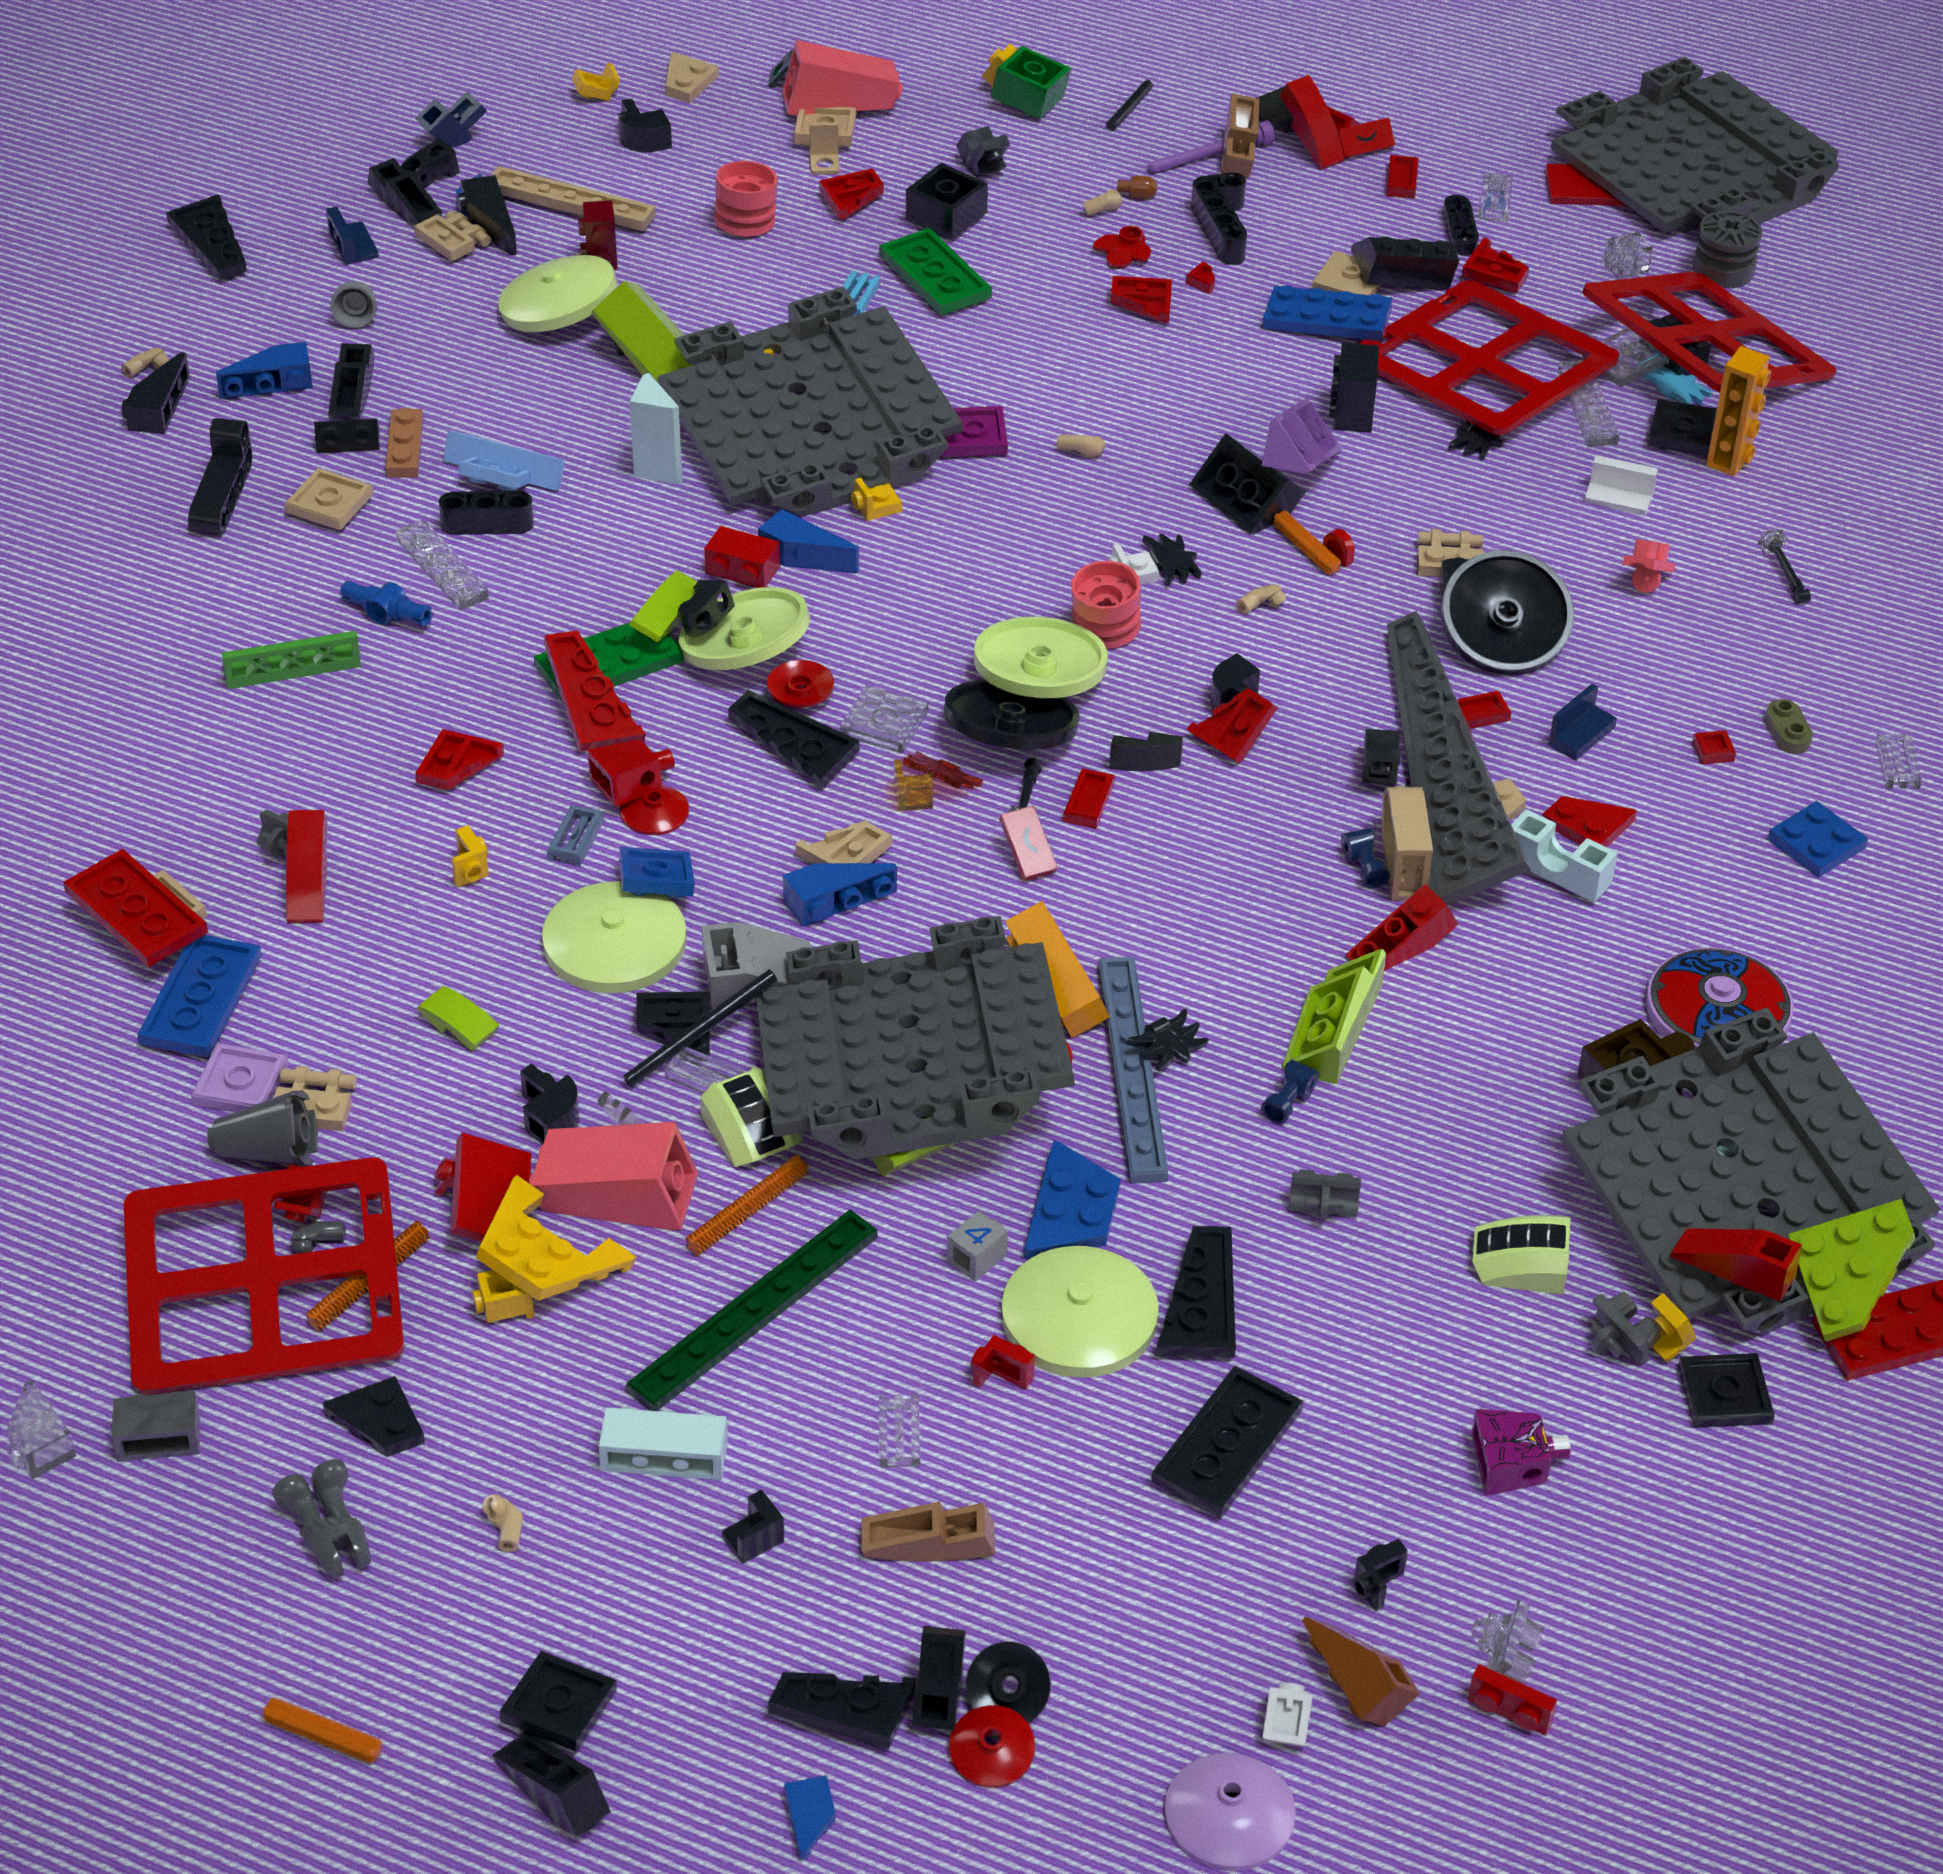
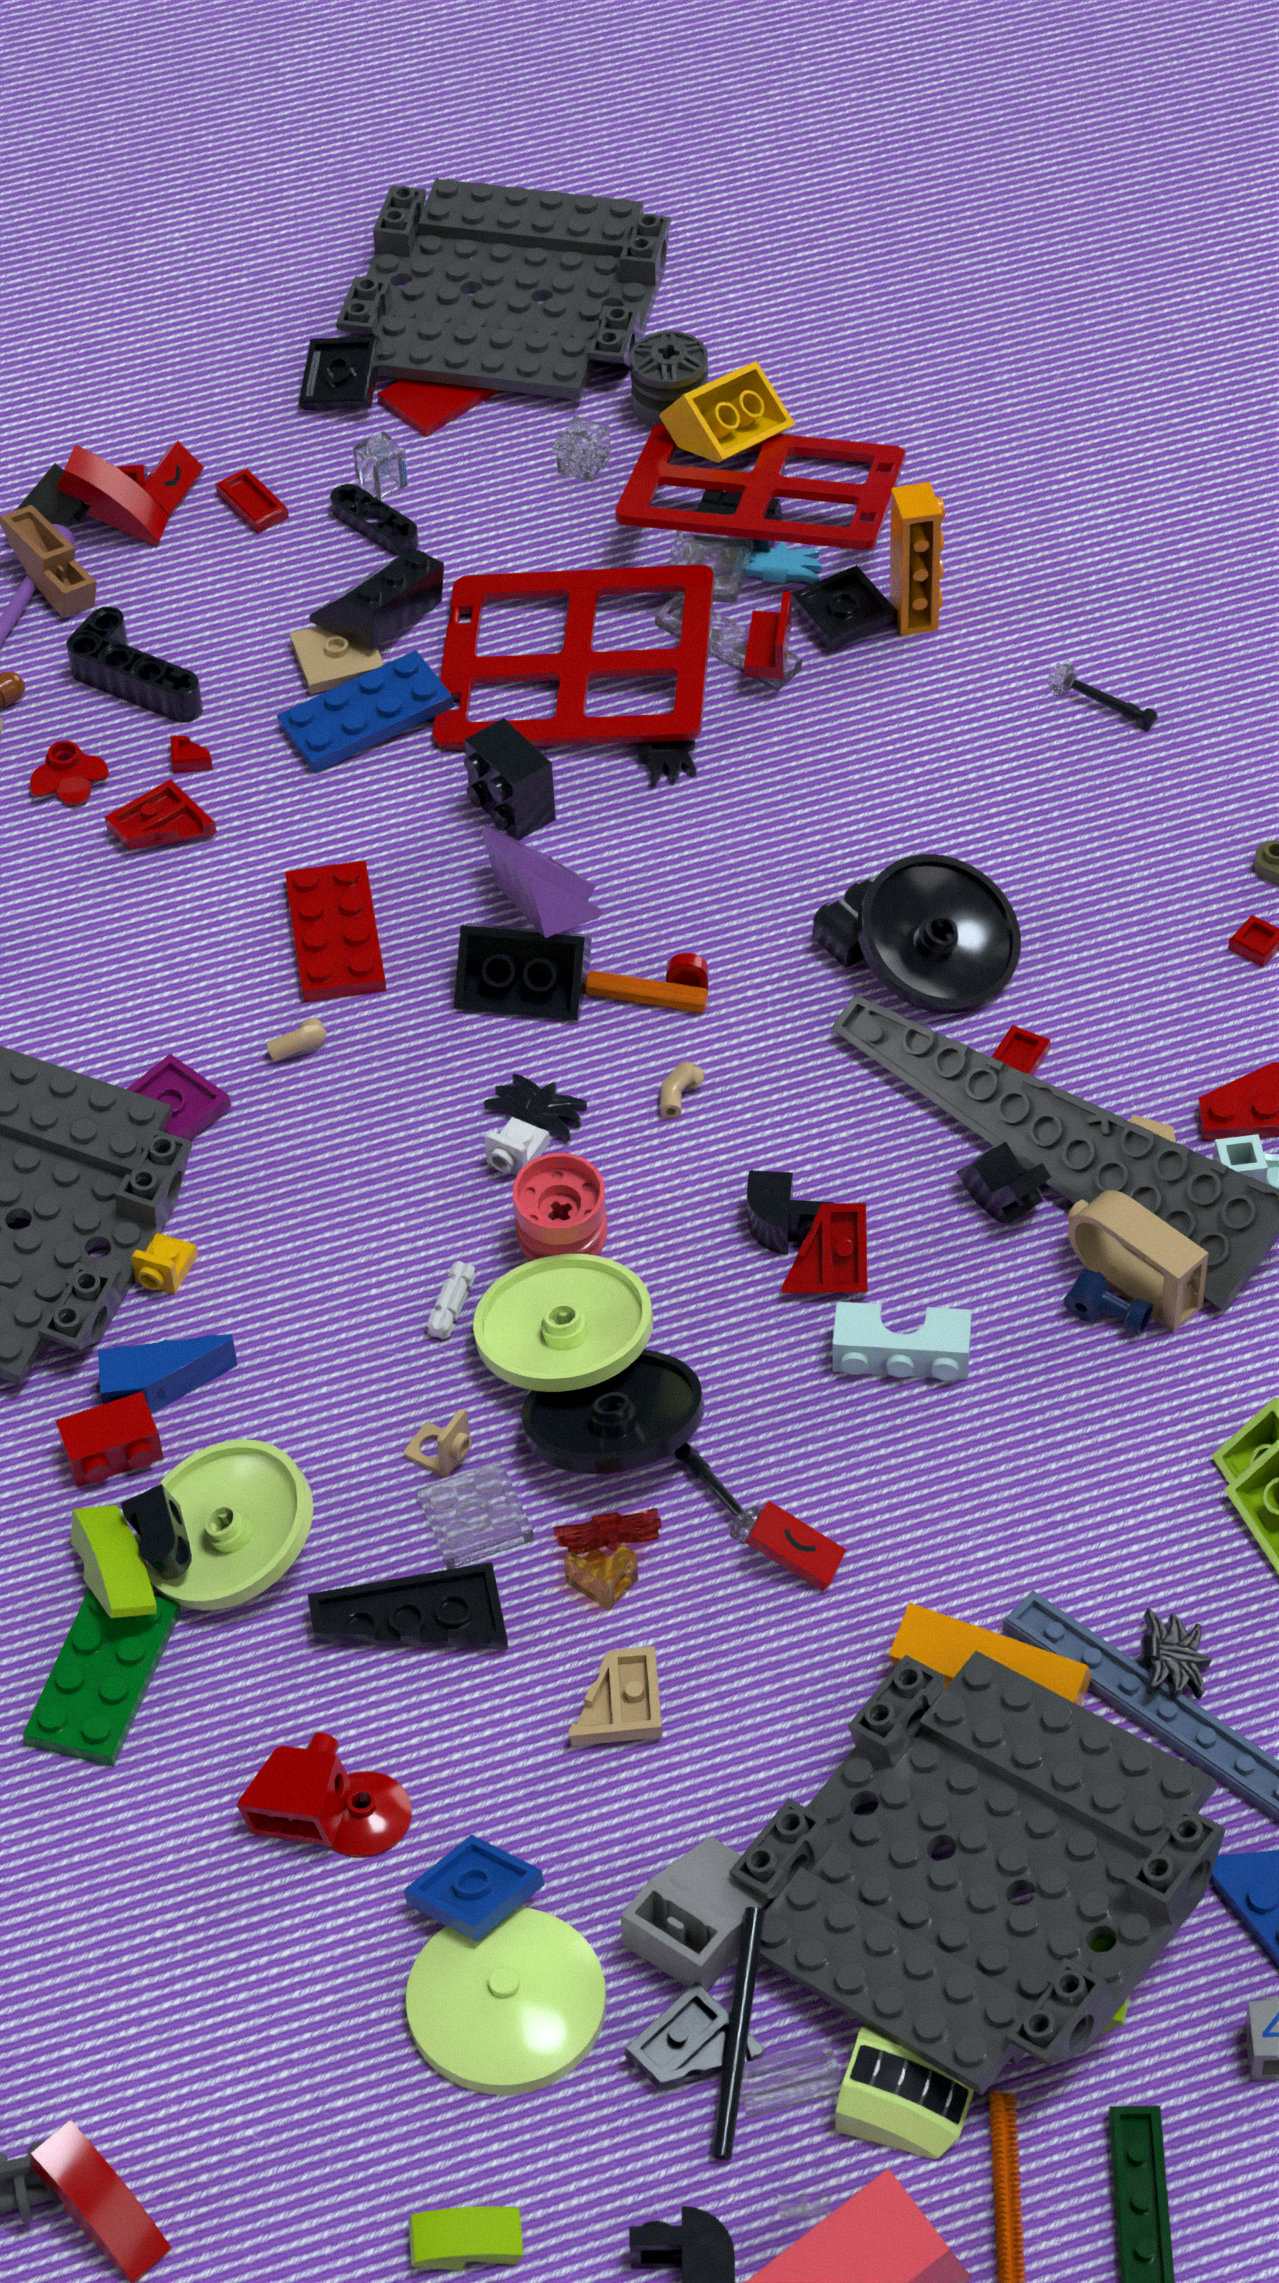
camera: 40 degrees left, 5 degrees up
(456, 758) = (88, 1929): red wing -> none
(472, 857) = (250, 2029): yellow bracket -> none
(569, 853) = (337, 1945): sand blue tile -> none
(588, 696) = (164, 1744): red wing -> none
(800, 683) = (349, 1528): red dish -> none
(835, 887) = (662, 1759): blue slope -> none
(909, 673) = (452, 1444): none -> tan bracket
(1023, 607) = (451, 1300): none -> white axle
(1089, 798) = (778, 1445): red tile -> none
(1156, 753) = (789, 1343): pearl dark grey slope -> none
(1171, 408) = (335, 931): none -> red plate
(1235, 810) = (933, 1351): none -> light aqua arch
(1409, 930) = (1240, 1362): red slope -> none
(1430, 557) = (793, 917): tan plate -> none
(1495, 268) = (468, 546): red wing -> none
(1532, 138) = (340, 373): none -> black tile
(1580, 724) = (1129, 1009): dark blue panel -> none
(1607, 411) = (769, 641): none -> red panel
(1621, 485) = (861, 714): white panel -> none
(1649, 559) = (995, 785): coral hips -> none
(1738, 283) = (727, 415): none -> yellow slope

